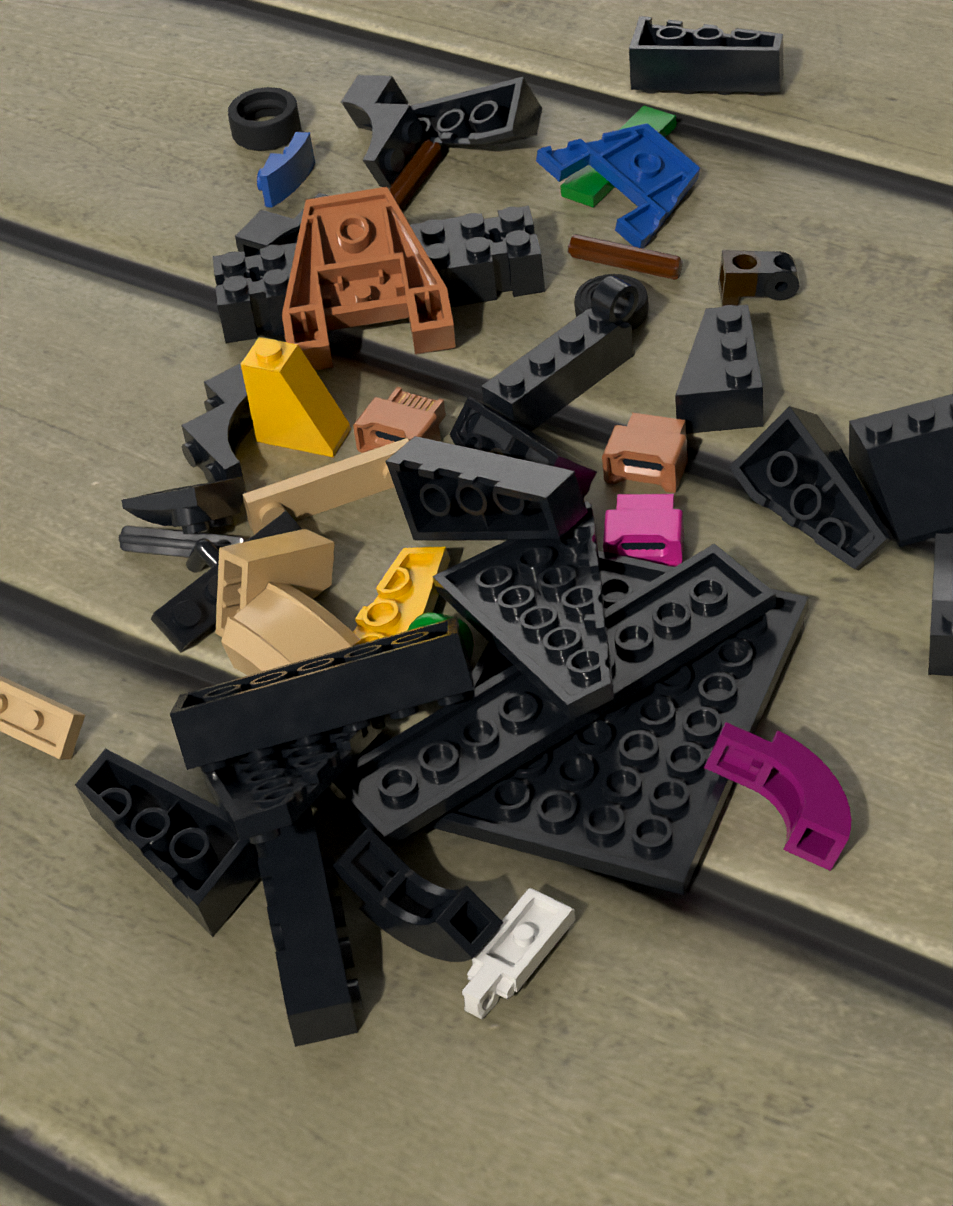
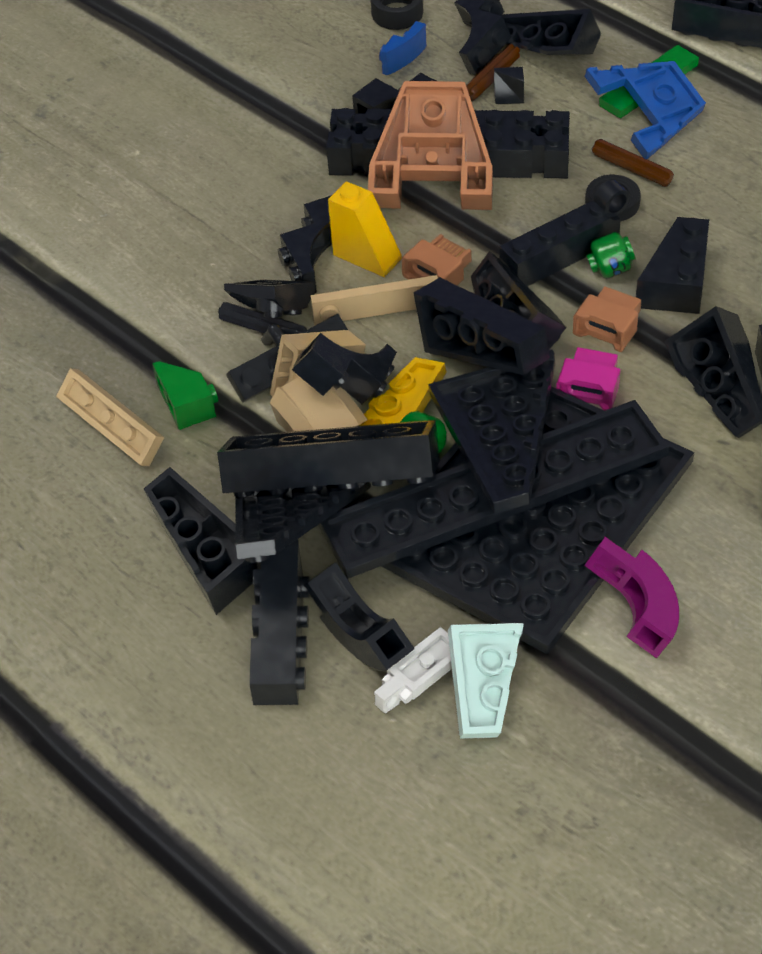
camera: 10 degrees right, 5 degrees up
(99, 654) = (185, 394): none -> green slope
(297, 574) = (330, 365): none -> black arch
(438, 190) = (509, 85): none -> black slope
(603, 934) = (482, 675): none -> light aqua wing
(630, 373) = (611, 255): none -> green head
(756, 275) = (724, 196): leg -> none

